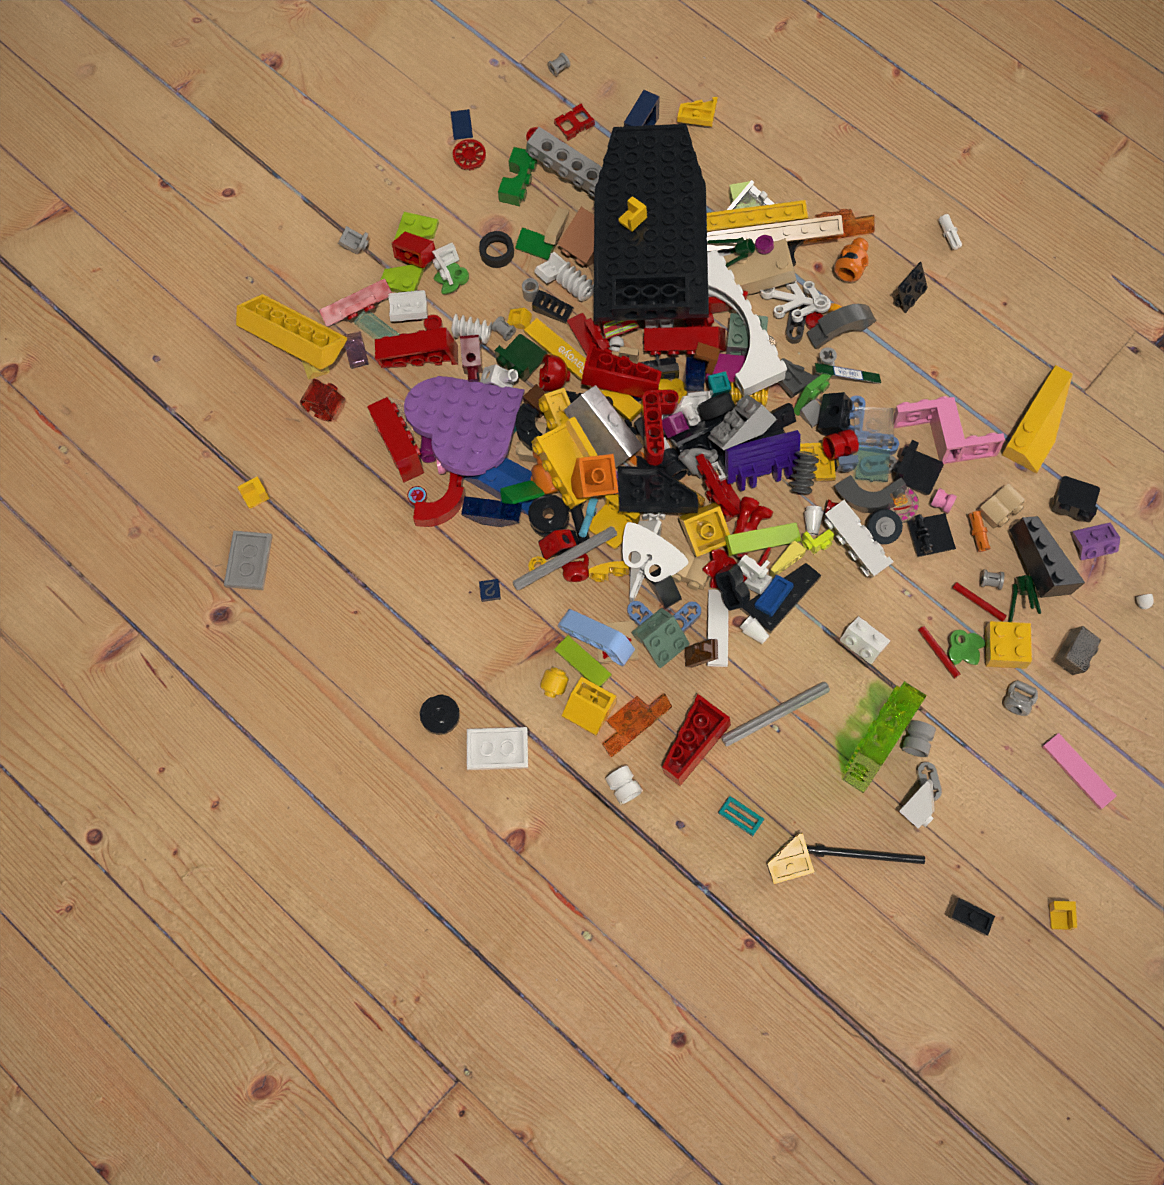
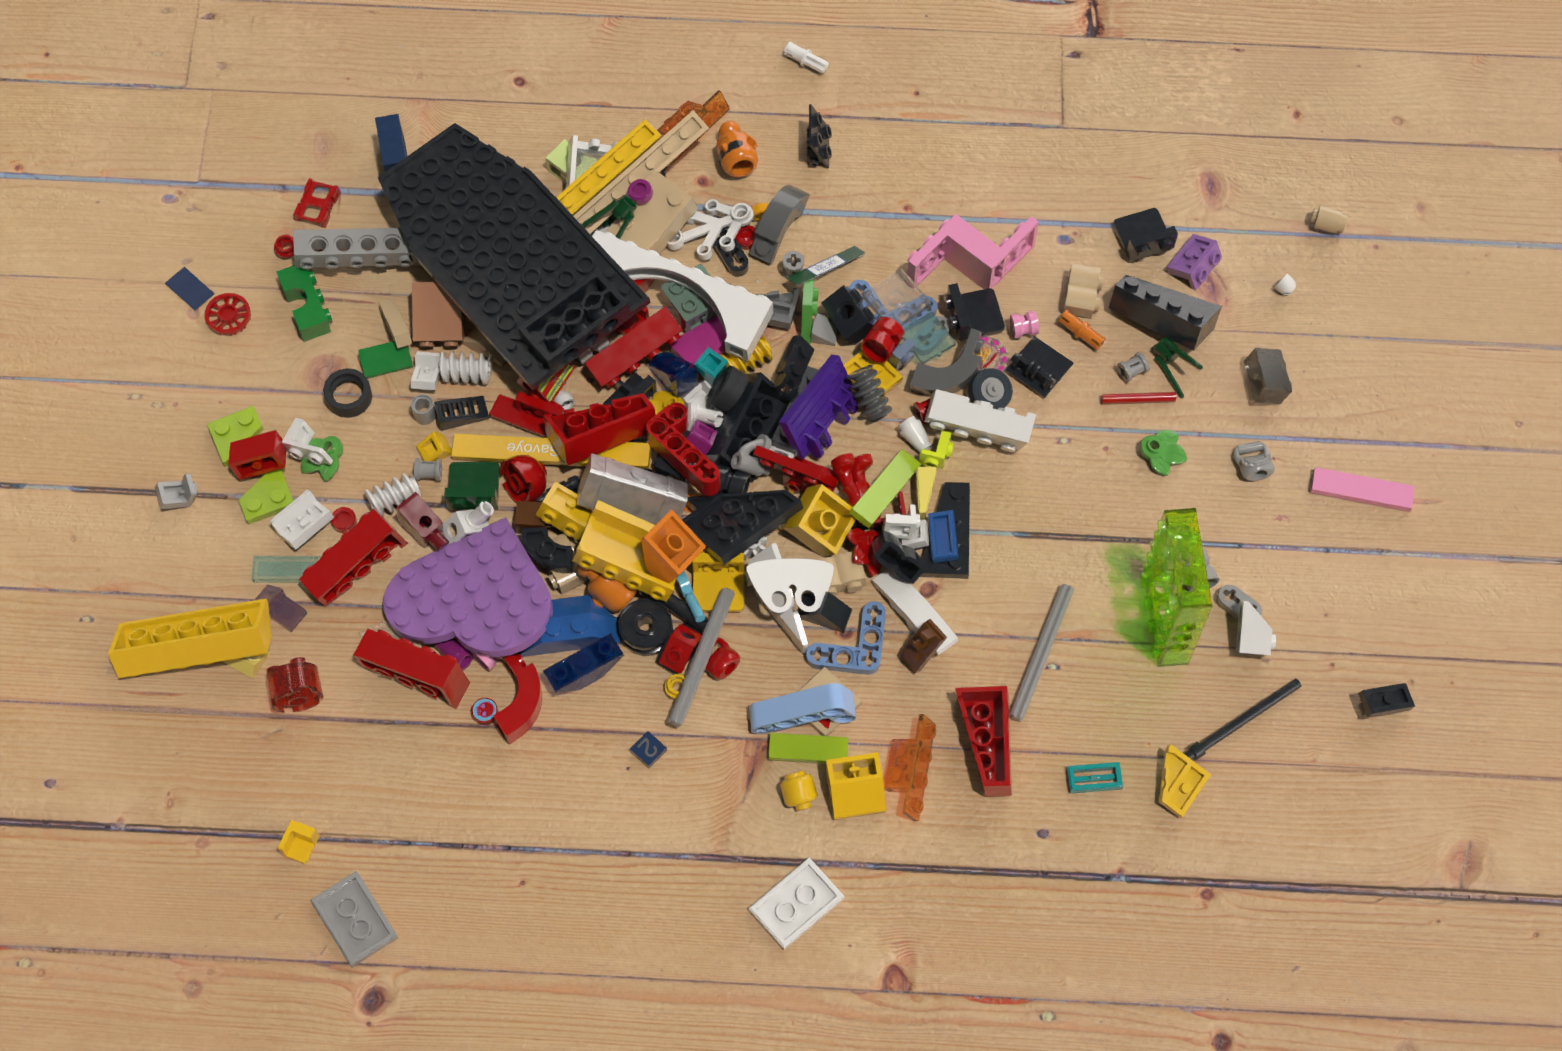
camera: 45 degrees left, 5 degrees down
(356, 302) = (238, 558): bracket -> none
(439, 714) = (706, 917): black tile -> none
(520, 492) = (601, 622): green slope -> none
(558, 64) = (247, 153): light grey bush -> none
(601, 572) = (752, 641): yellow slope -> none
(624, 786) = (957, 836): white wheel -> none
(631, 353) = (583, 401): tan tile -> none
(634, 215) = (484, 250): yellow panel -> none
(661, 637) = (867, 659): sand green bracket -> none
(698, 112) = (444, 106): yellow wing -> none
(708, 355) = (675, 343): dark orange panel -> none
(742, 423) = (773, 386): light grey slope -> none
(754, 629) = (951, 585): white cone -> none
(864, 640) = (1065, 515): white bracket -> none
(939, 652) = (1143, 474): red bar -> none
(1008, 645) = (1201, 418): yellow brick -> none
(1041, 422) = (1049, 186): yellow wedge -> none
(1063, 915) = (1463, 633): yellow panel -> none

